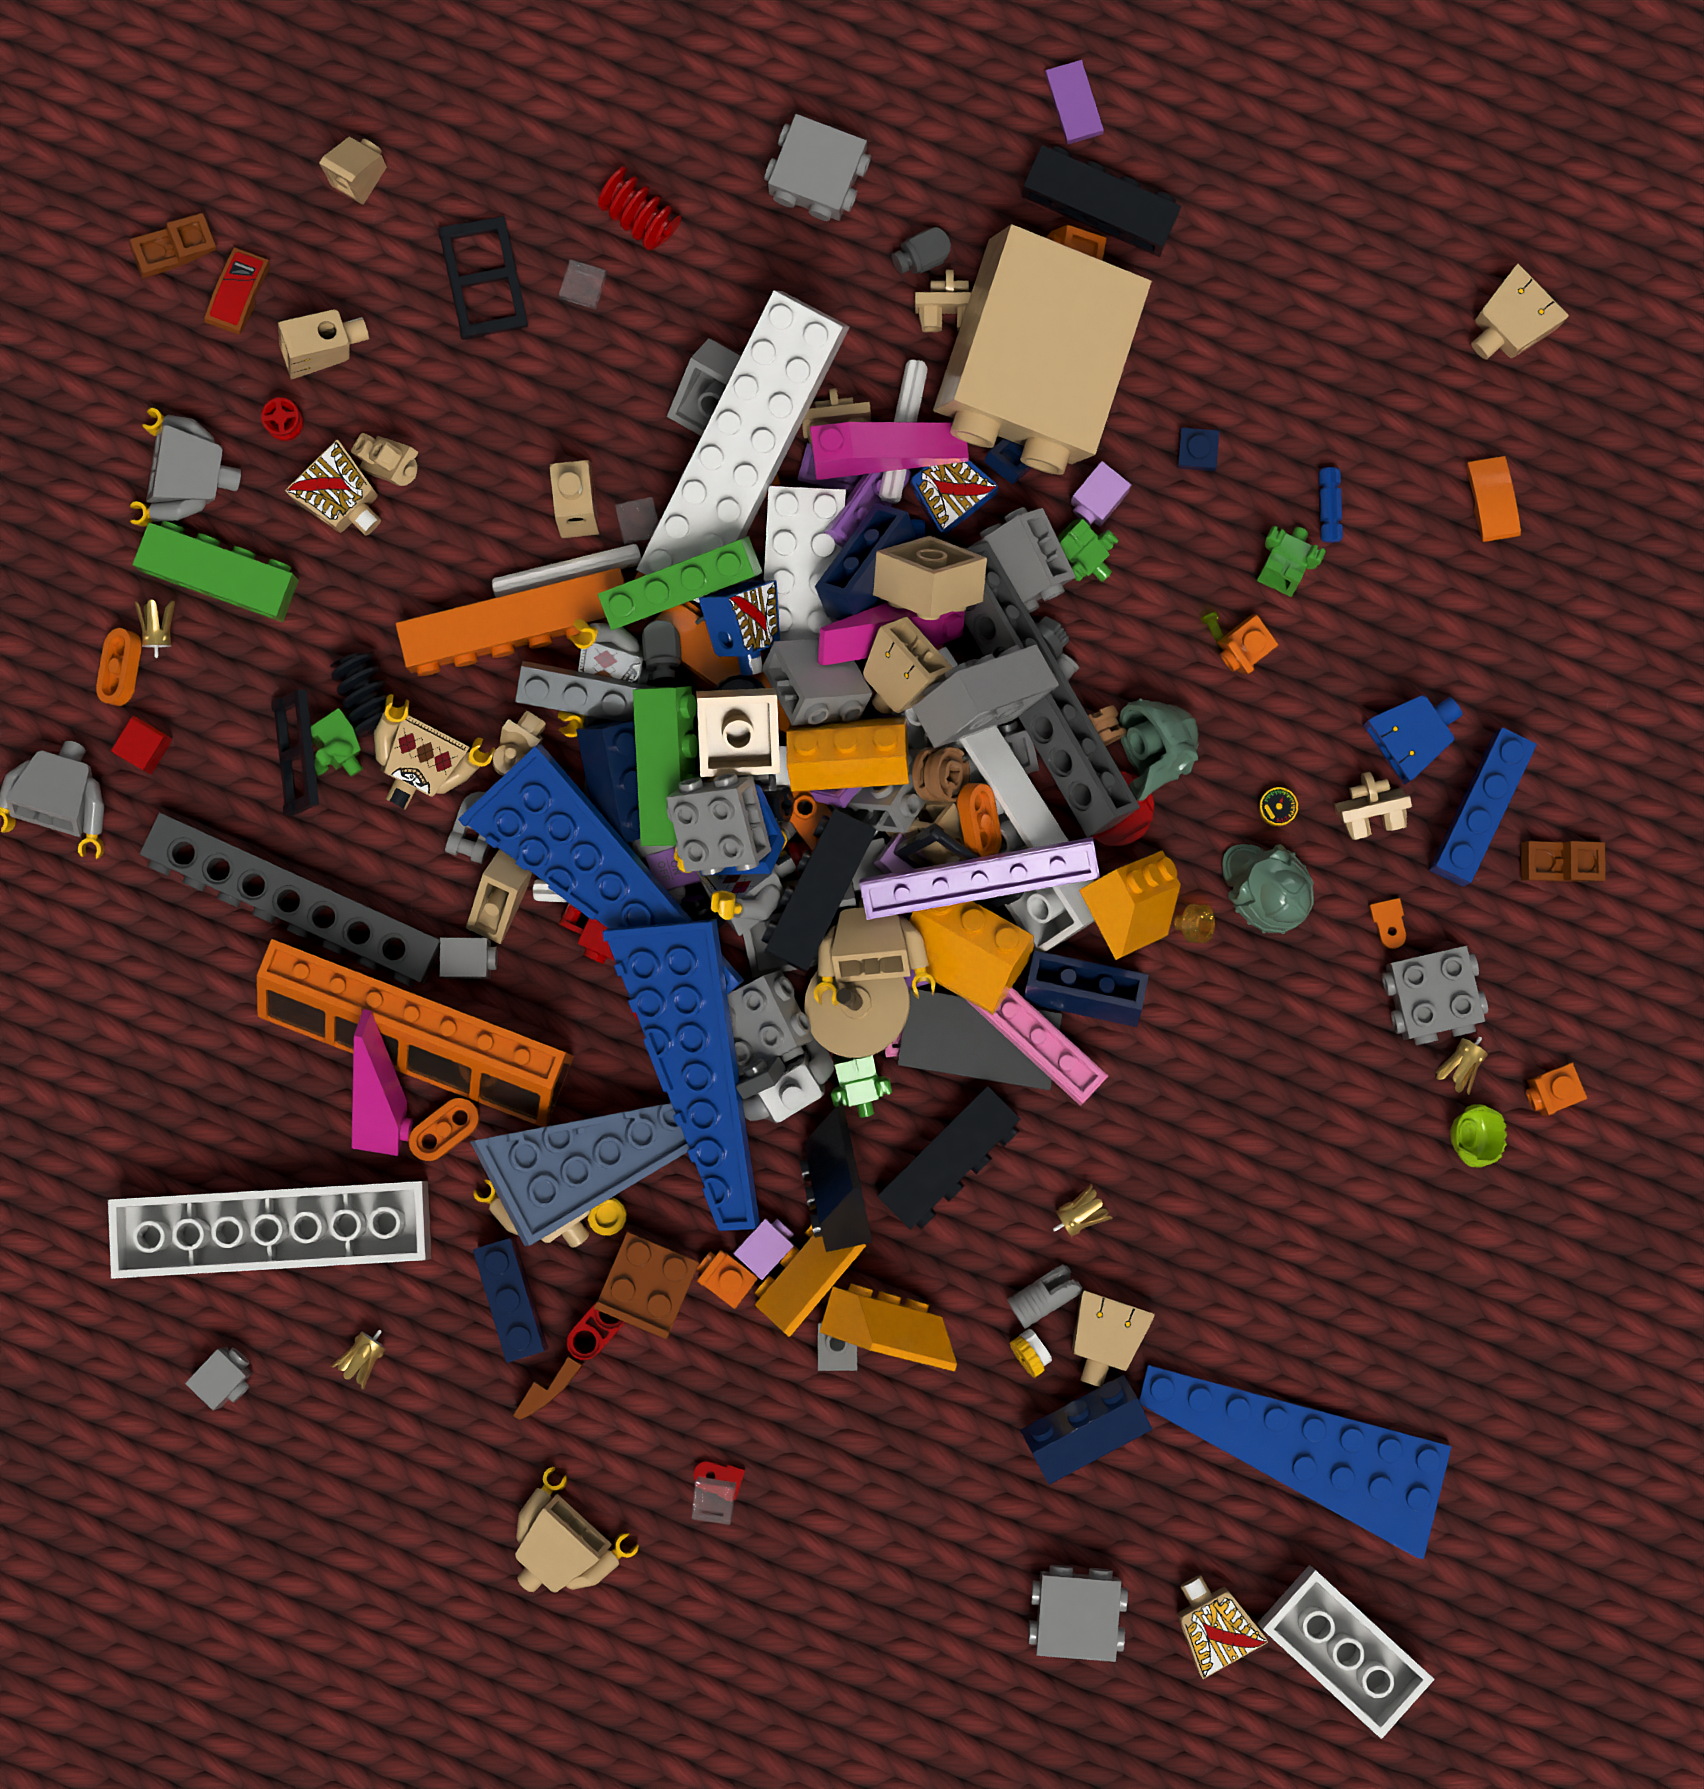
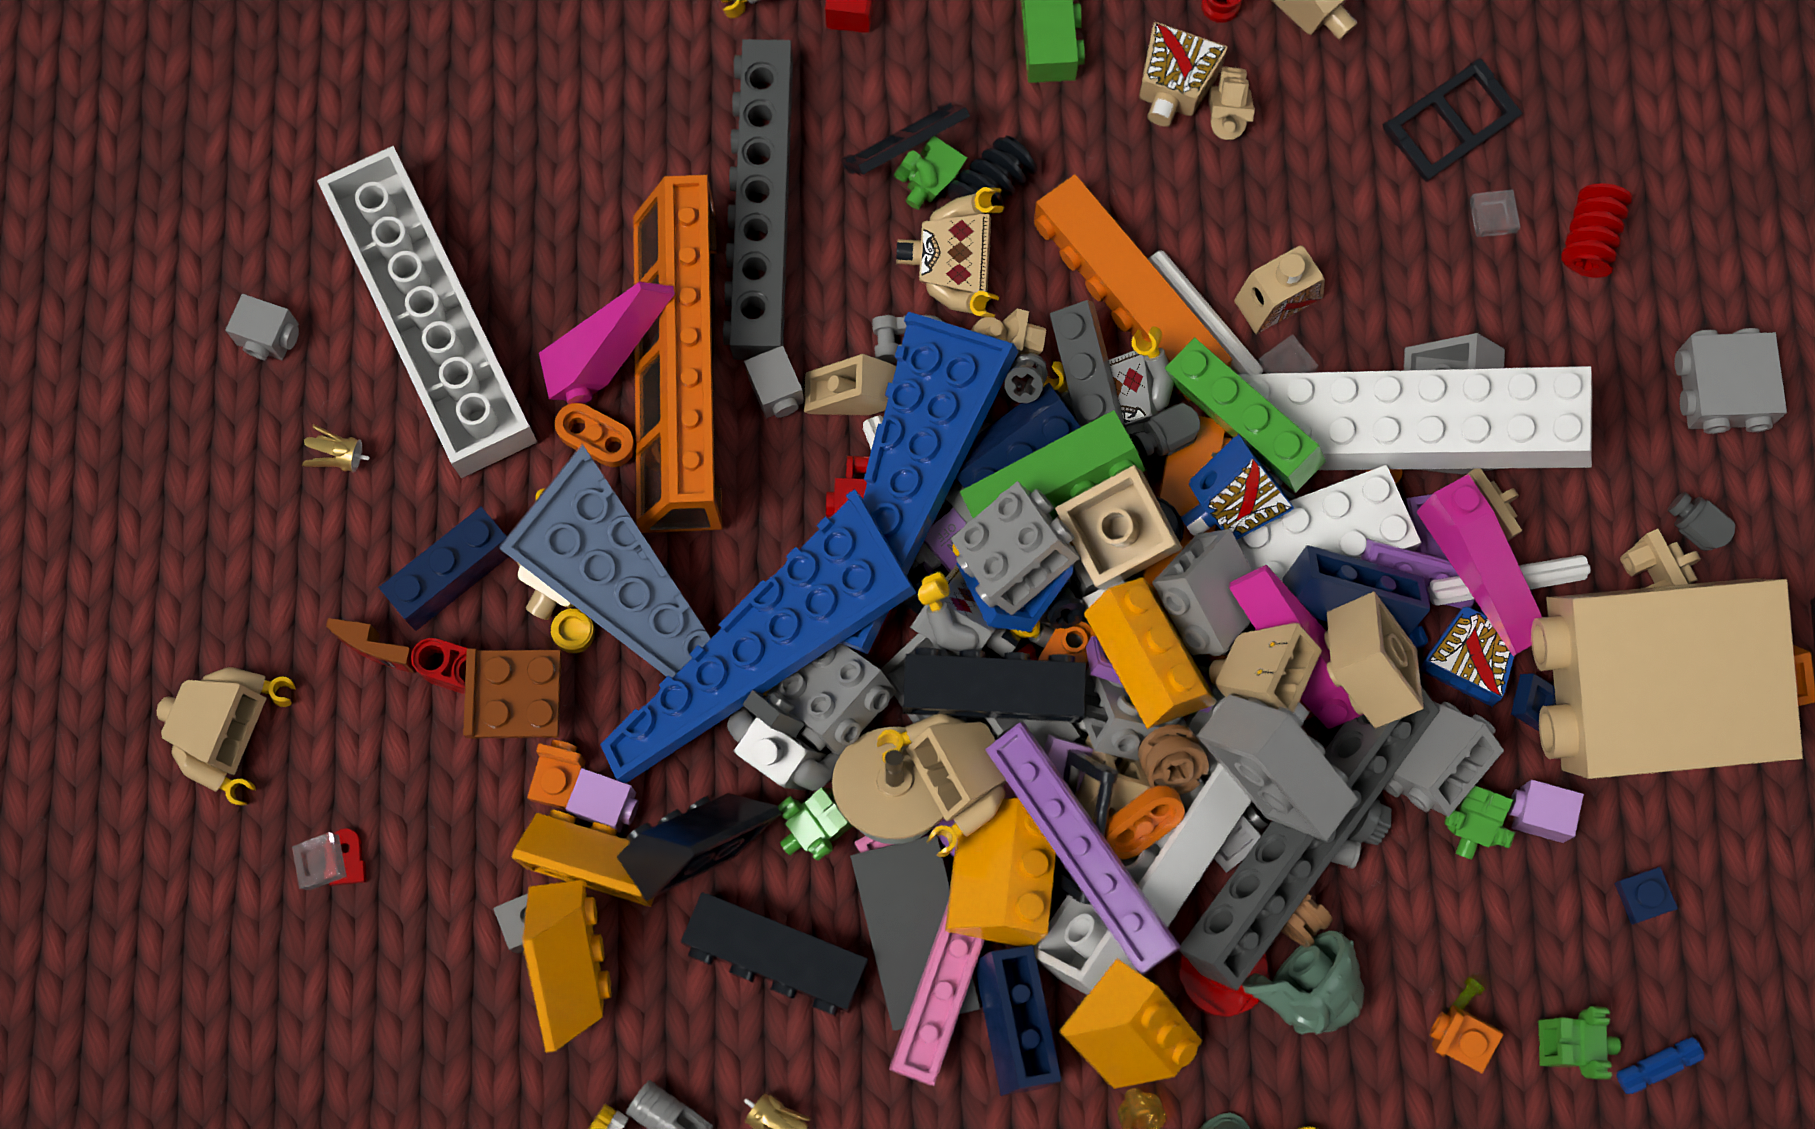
camera: 65 degrees right, 10 degrees down
(570, 745) = (1033, 386): none -> dark grey bush

